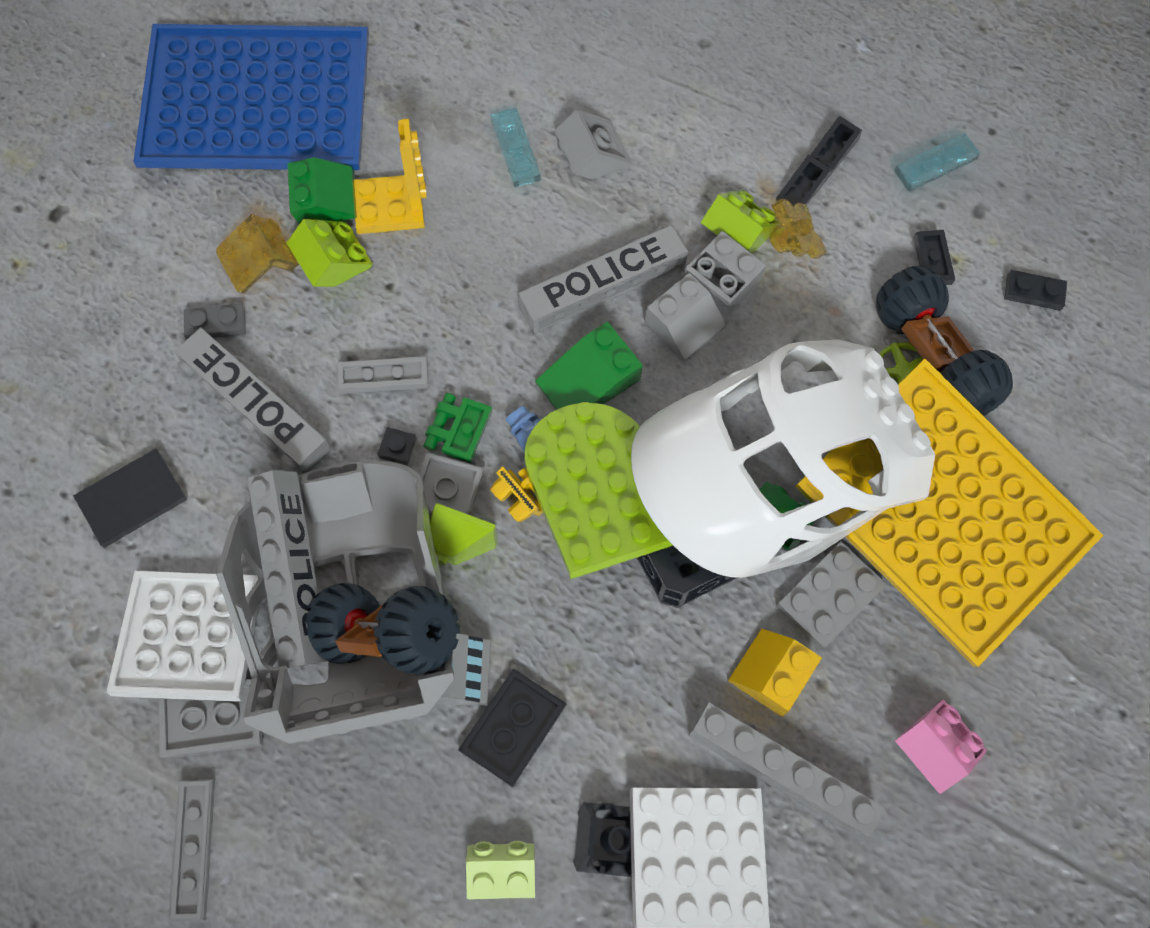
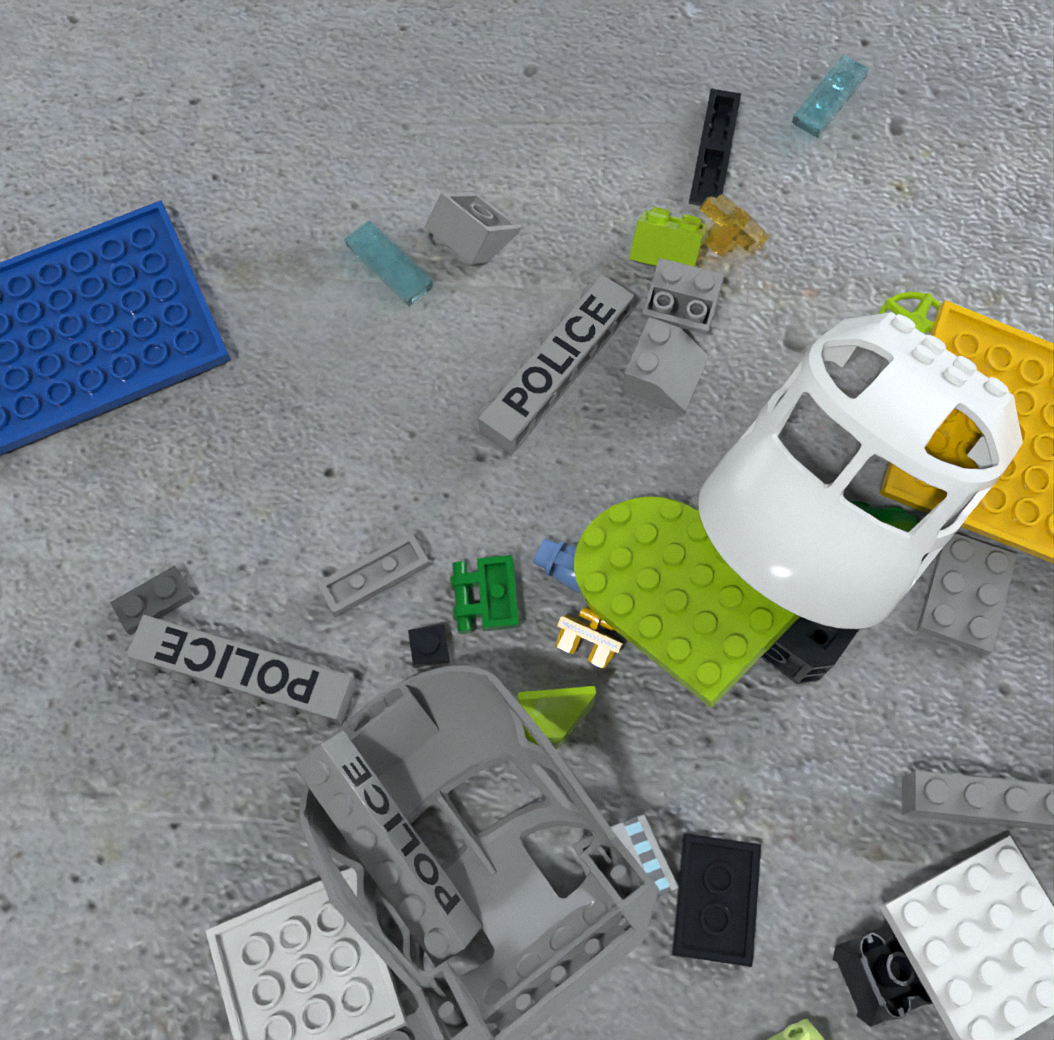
camera: 20 degrees left, 0 degrees up
(129, 498) = (155, 848): black tile -> none
(253, 251) = (159, 502): clear yellow bracket -> none
(321, 190) = (202, 402): green slope -> none
(328, 252) = (243, 465): lime slope -> none
(393, 201) = (289, 375): yellow bracket -> none
(410, 630) = (579, 855): black plate -> none
(450, 482) = (512, 657): light grey plate -> none
(591, 370) = (597, 468): green slope -> none
(775, 670) = (958, 701): yellow slope -> none
(913, 306) = (886, 253): black plate -> none
(934, 253) = (880, 194): black plate -> none
(1035, 290) = (994, 184): black plate -> none

